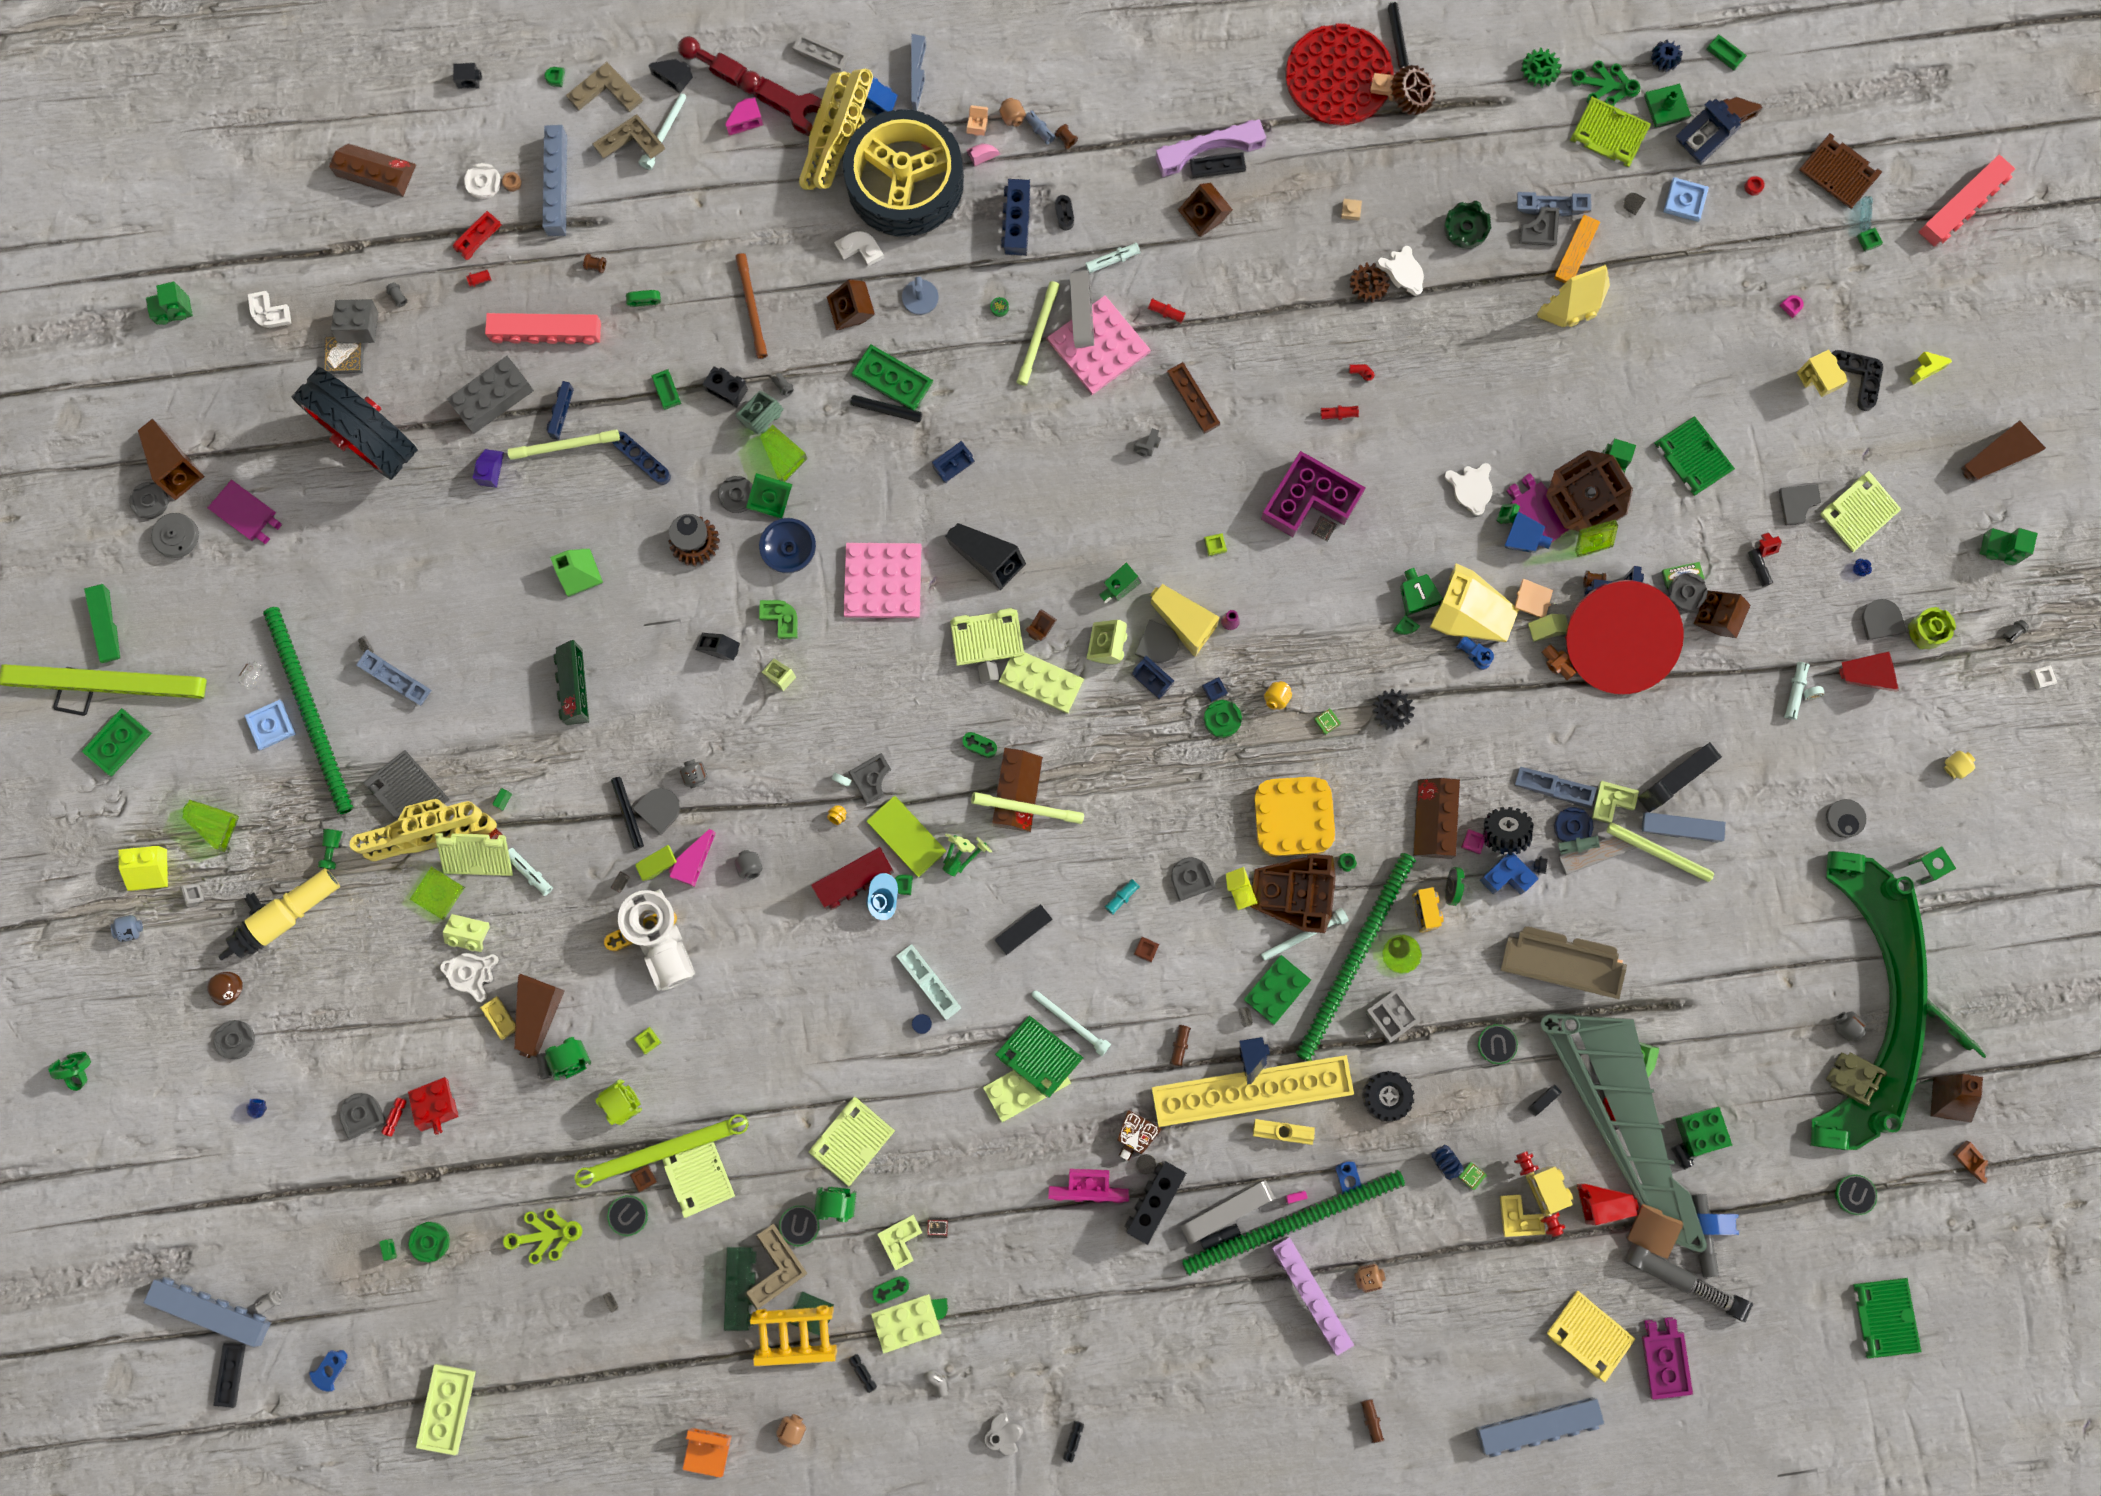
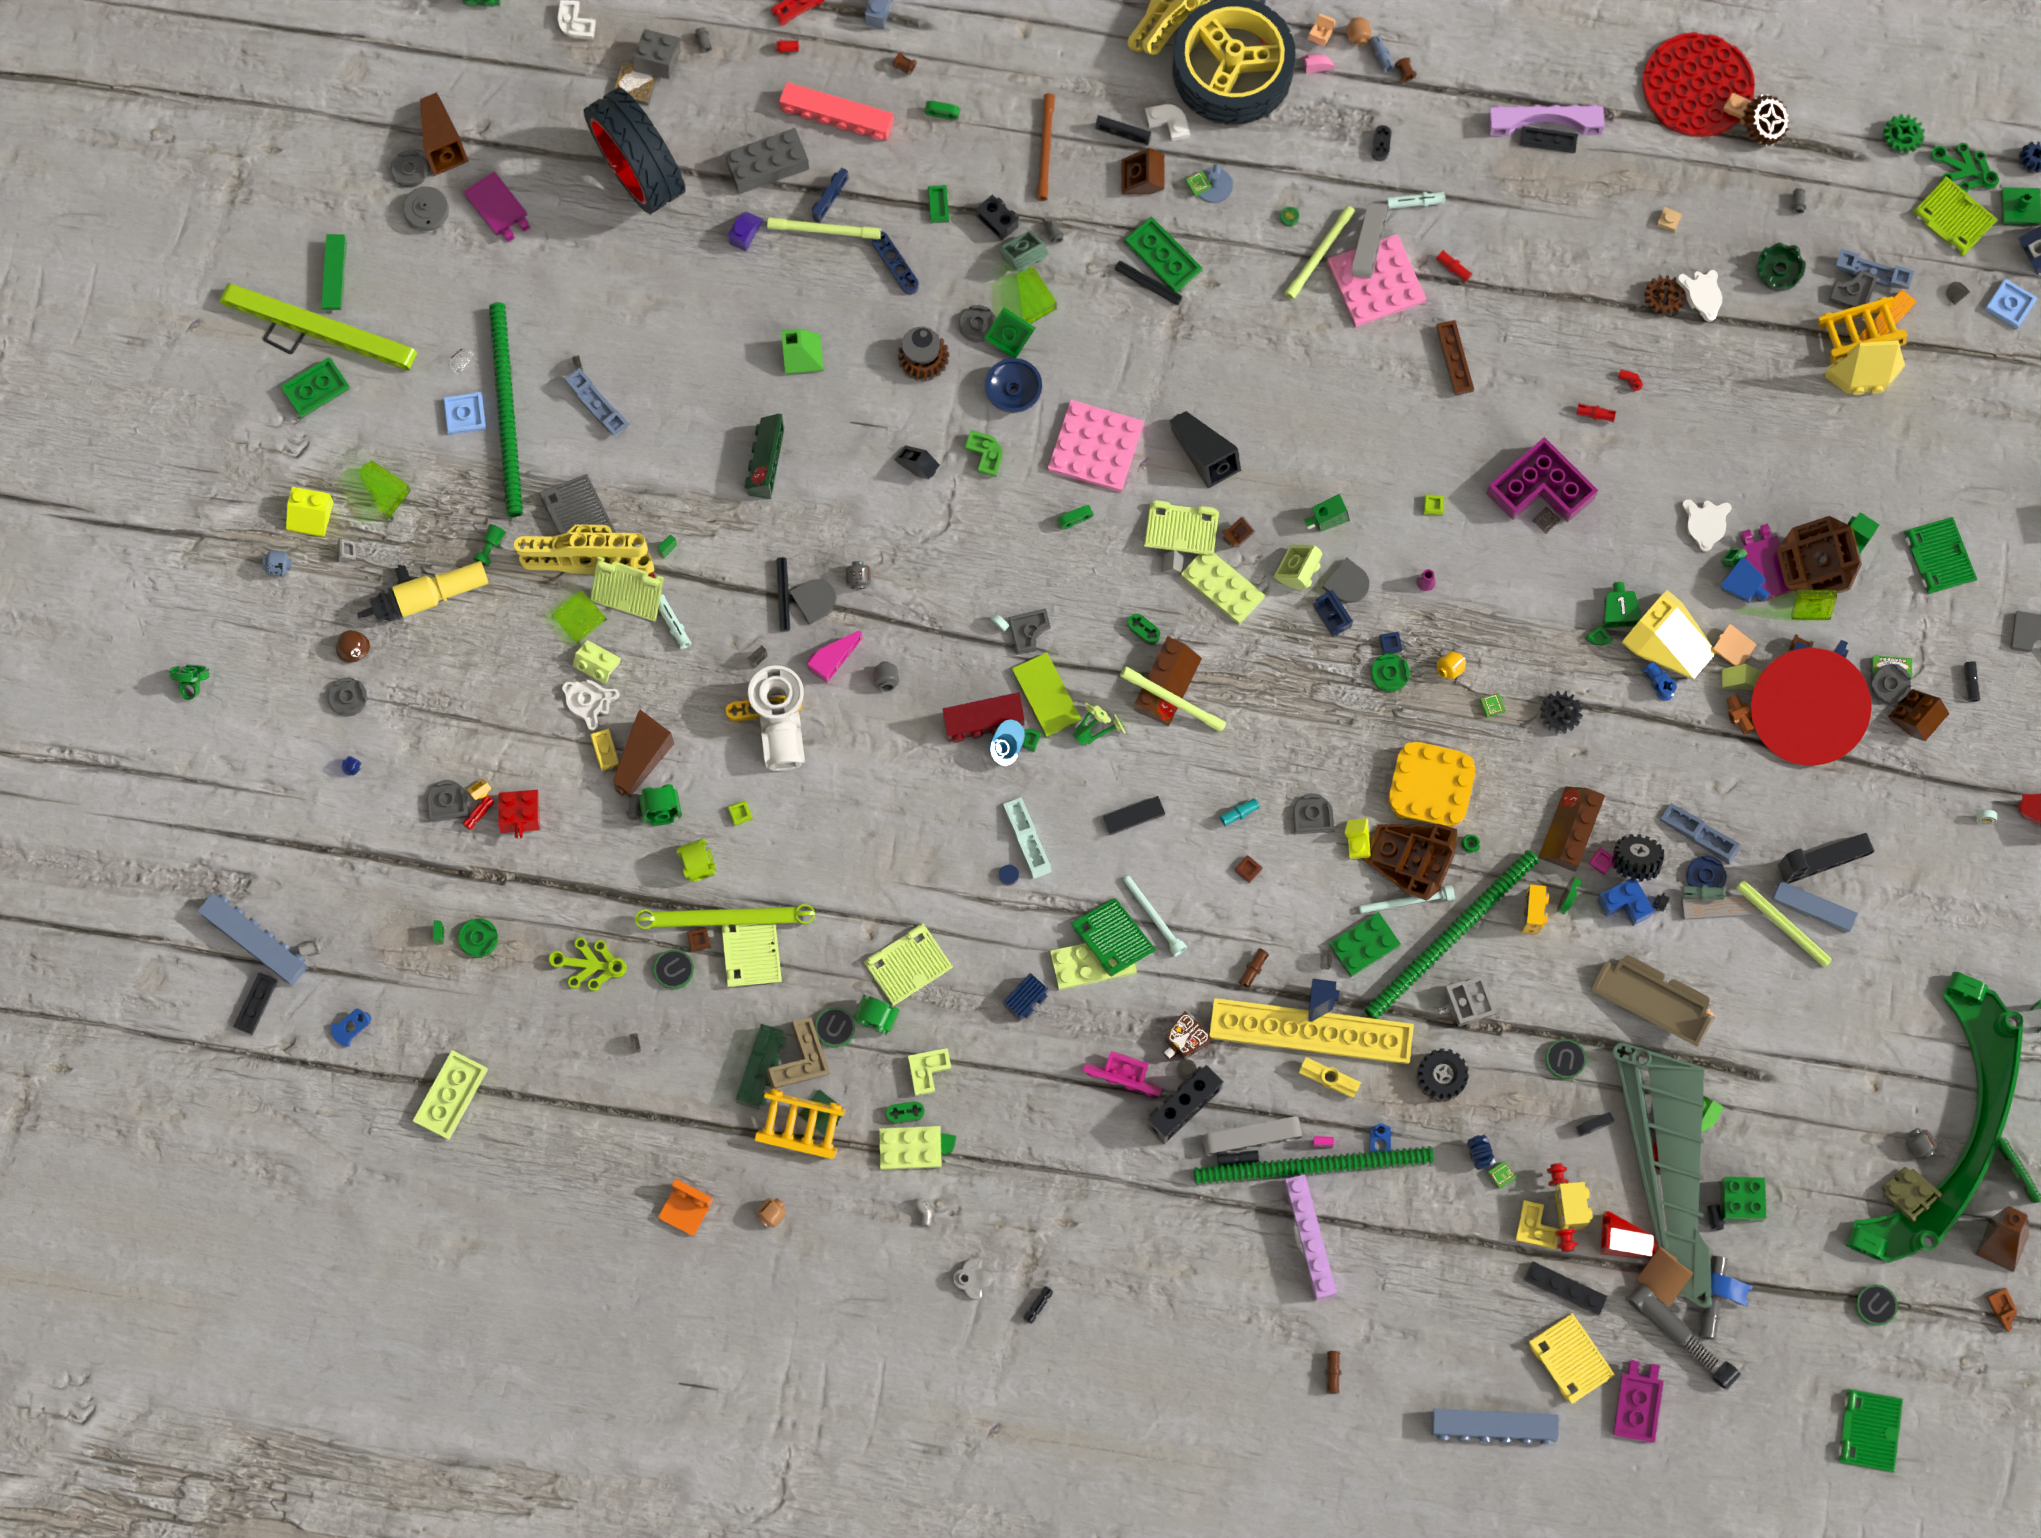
camera: 15 degrees right, 5 degrees down
(387, 1095) = (479, 789): none -> yellow plate
(655, 863) = (797, 648): lime slope -> none
(779, 674) = (969, 506): yellowish green slope -> none
(819, 269) = (1123, 130): none -> black tile
(837, 815) = (985, 654): yellow plate -> none
(862, 1373) = (854, 1181): black axle -> none
(883, 655) = (1075, 517): none -> green beam
(905, 299) = (1198, 183): none -> bright green tile
(937, 1227) = (967, 1068): clear smoke tile -> none
(953, 462) = (1198, 352): dark blue hinge -> none
(973, 1140) = (1025, 997): none -> dark blue brick
(1017, 217) = (1332, 135): dark blue brick -> none
(1153, 442) = (1401, 388): dark grey bracket -> none
(1186, 618) = (1384, 567): light yellow slope -> none
(1205, 209) = (1522, 178): reddish brown slope -> none
(1370, 1278) = (1372, 1238): medium nougat head -> none
(1398, 36) = (1769, 61): black axle -> none
(1401, 954) = (1497, 946): clear neon green tile -> none
(1466, 162) = (1798, 201): none -> dark grey pin
(1548, 290) = (1882, 304): none -> yellow fence
(1564, 1268) = (1565, 1288): none -> black plate
(1609, 797) = (1752, 856): yellowish green plate -> none
(1769, 545) = (1987, 662): red tile -> none
(1798, 684) = (1974, 803): light aqua pin -> none
(1846, 818) = (1981, 946): dark grey tile -> none

